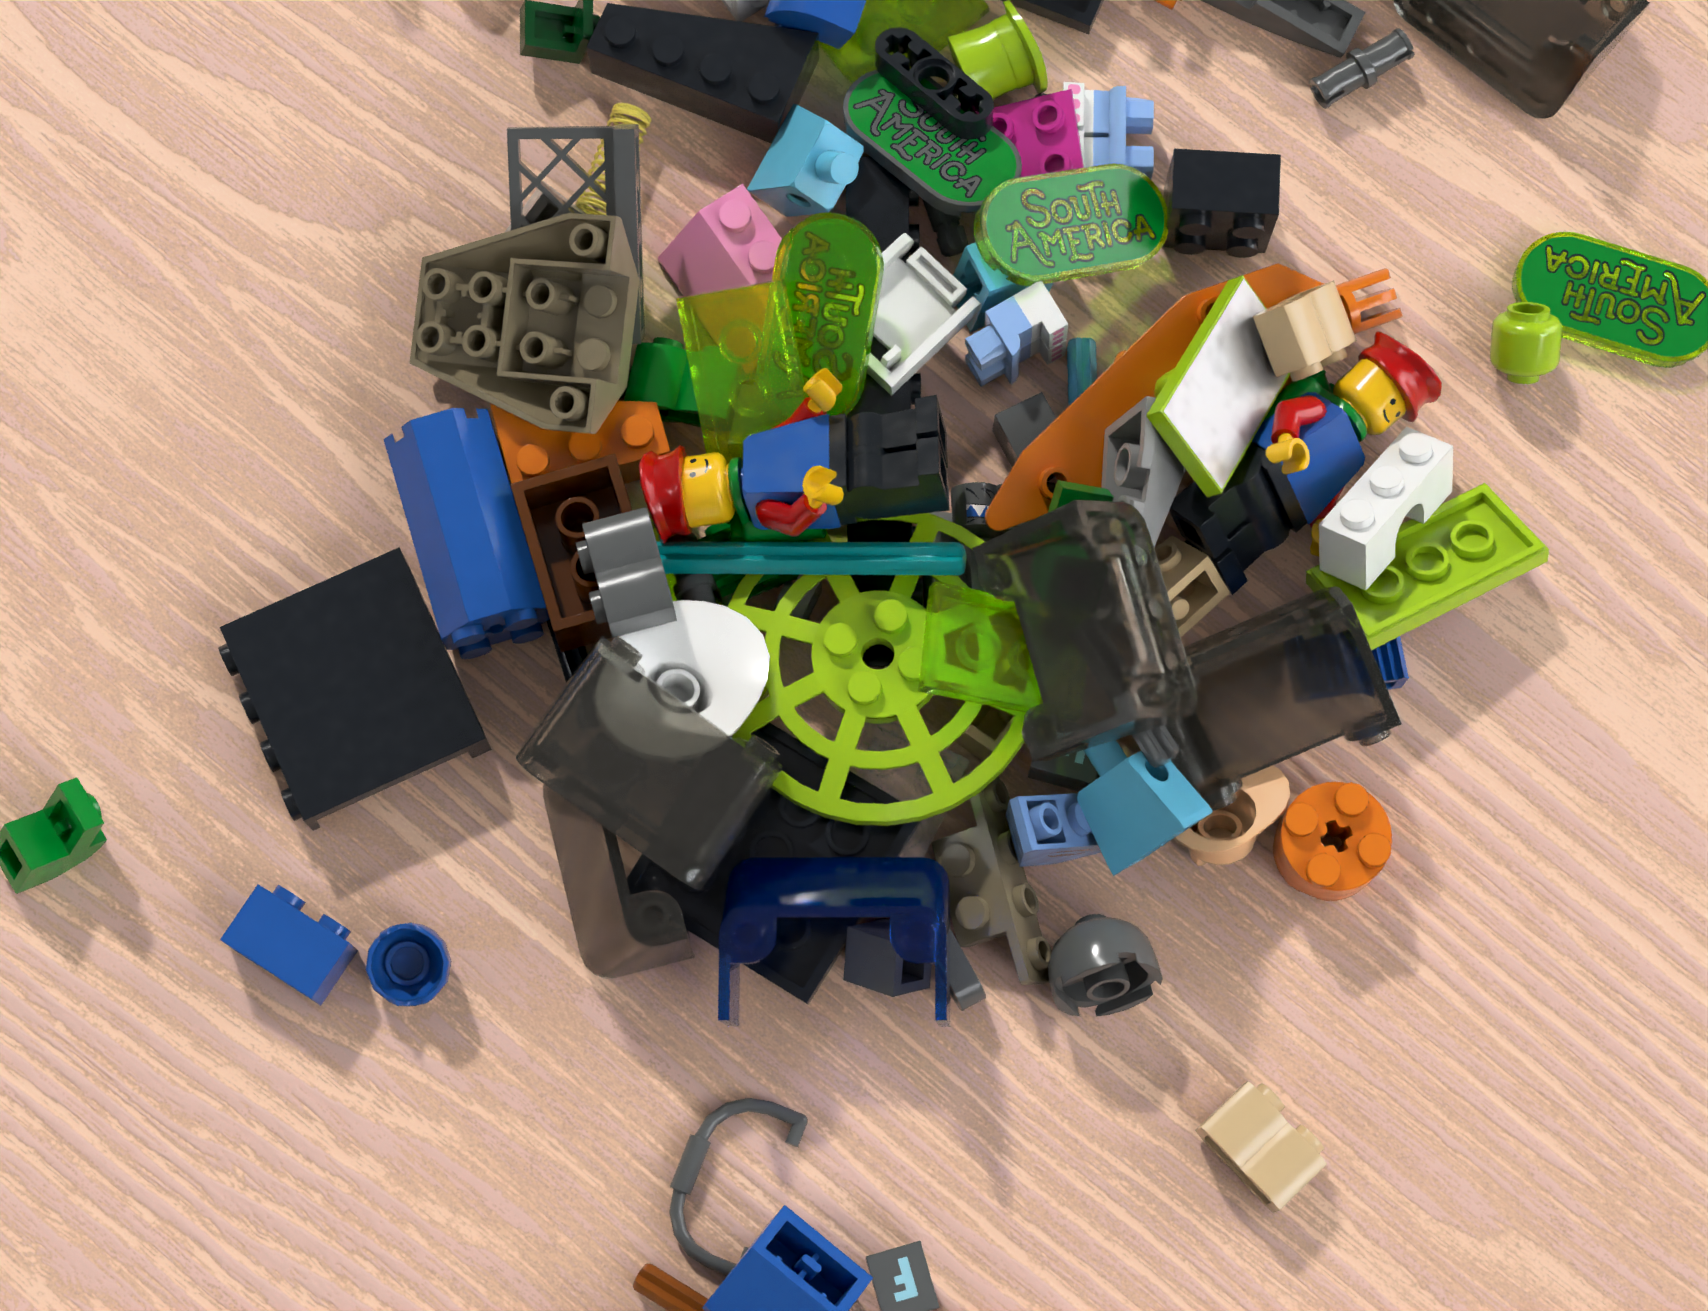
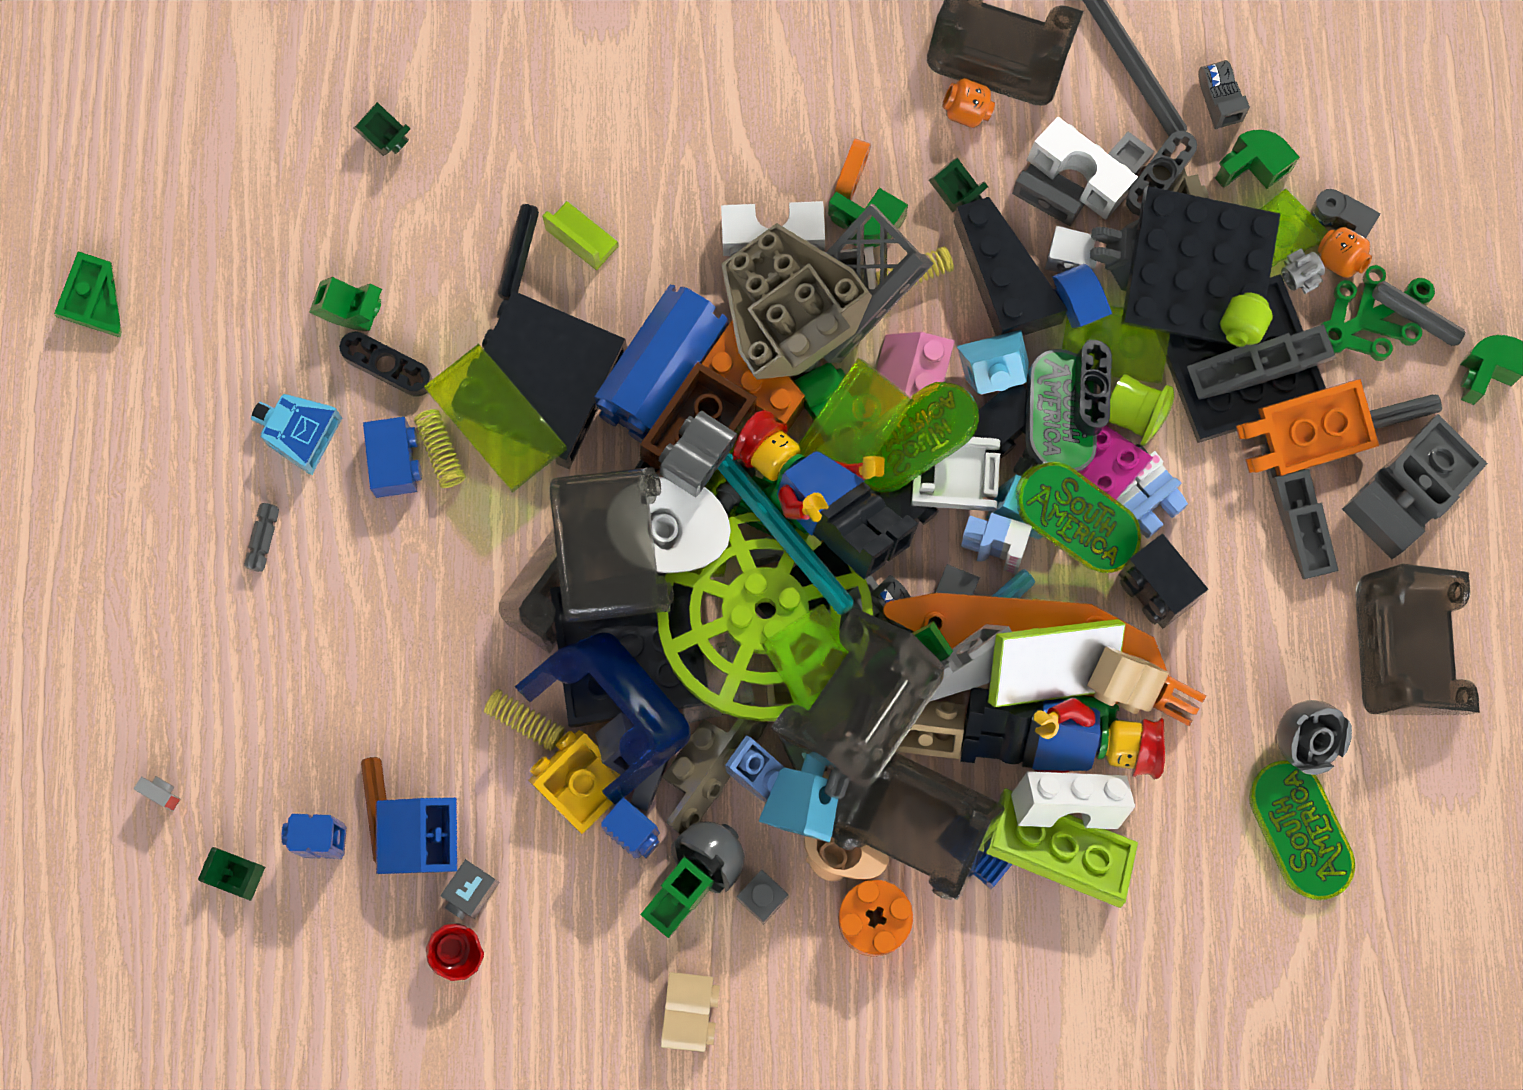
camera: 50 degrees right, 0 degrees up
(132, 883) = (369, 344): none -> black beam
(151, 1028) = (297, 429): none -> torso
(171, 585) = (518, 250): none -> black axle
(218, 496) = (580, 235): none -> lime panel
(246, 1183) = (261, 537): none -> dark grey axle
(284, 850) = (457, 472): none -> light yellow piece
(359, 777) = (495, 418): none -> clear neon green tile
(386, 306) = (742, 226): none -> white arch
(408, 964) = (427, 520): blue hair -> none
(429, 126) = (853, 168): none -> orange beam
(483, 173) = (845, 212): none -> green brick
(694, 1156) = (449, 736): dark grey piece -> none
(803, 1036) = (493, 702): none -> light yellow piece
(880, 1047) = (575, 780): none -> yellow plate
(998, 1030) = (631, 829): none -> blue brick
(1119, 1044) = (678, 897): none -> green brick
(1200, 947) = (762, 897): none -> dark grey brick
(1361, 68) = (1306, 594): dark grey pin -> none
(1525, 342) = (1231, 800): lime head -> none
(1528, 193) = (1313, 736): none -> dark grey cylinder

